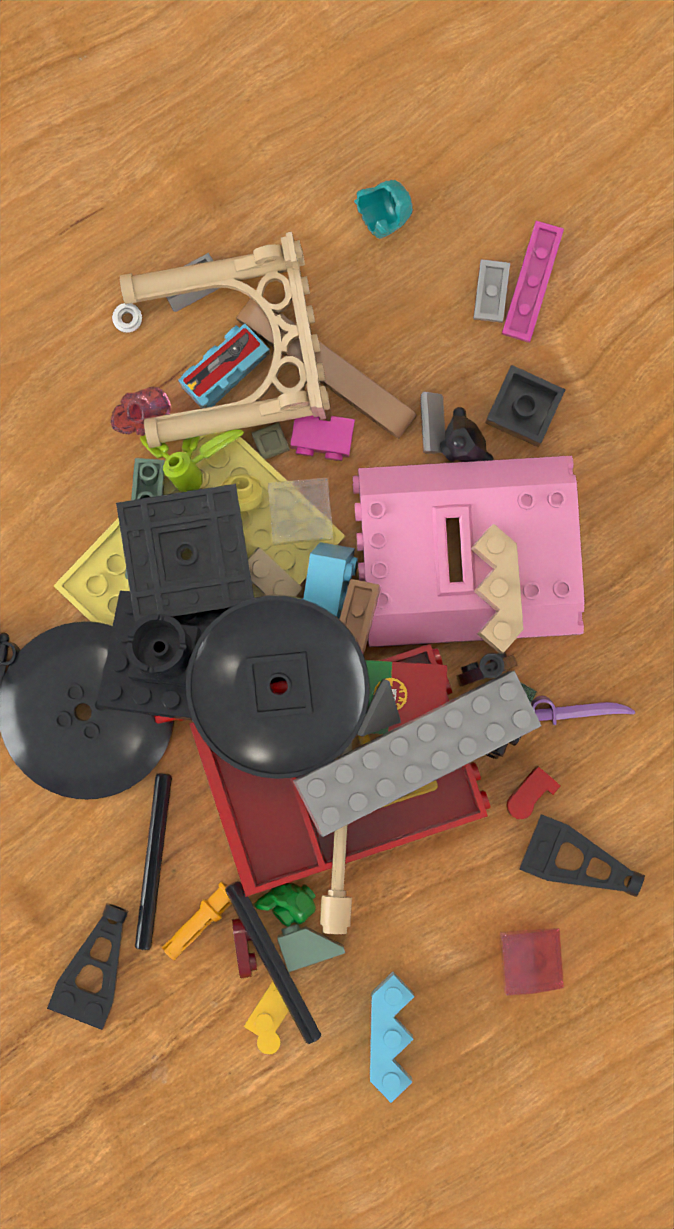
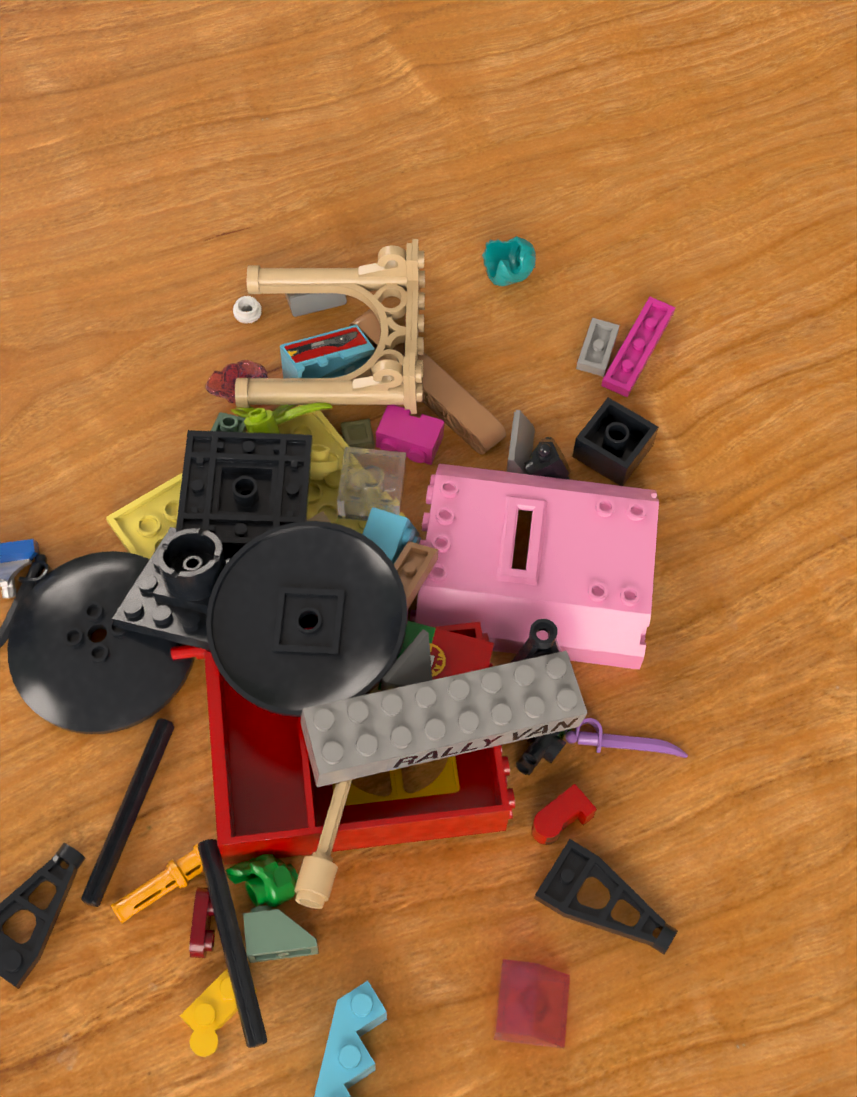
camera: 10 degrees right, 25 degrees down
(500, 588) = (564, 573): tan brick -> none

